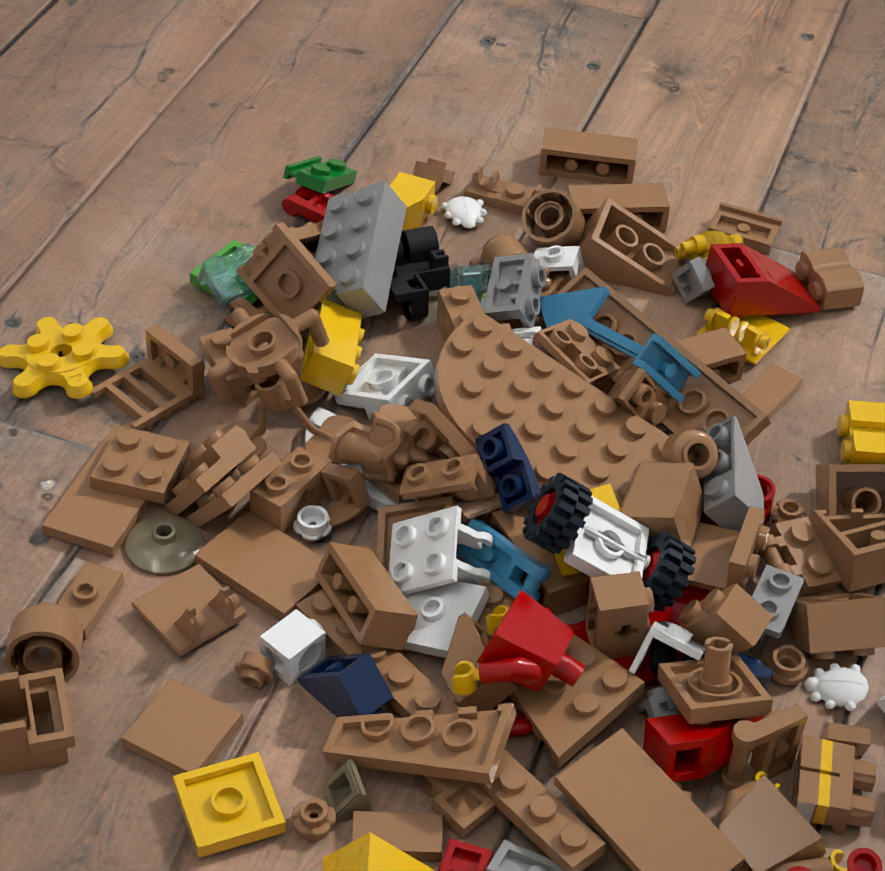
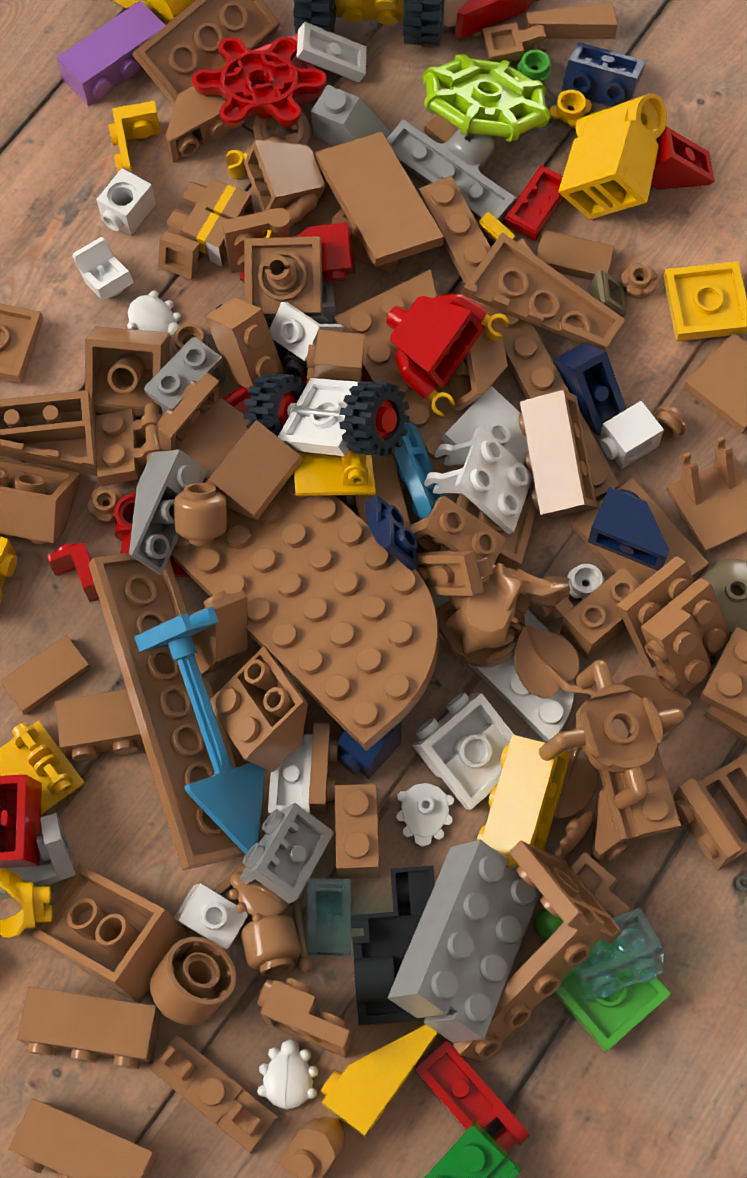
camera: 160 degrees left, 25 degrees up
(280, 547) = (629, 529): none -> dark blue slope
(414, 349) = (424, 812): none -> white piece
(462, 212) = (294, 1011): none -> medium nougat plate
(498, 828) = (493, 227): none -> yellow tile
(779, 458) = (72, 557): none -> red bracket

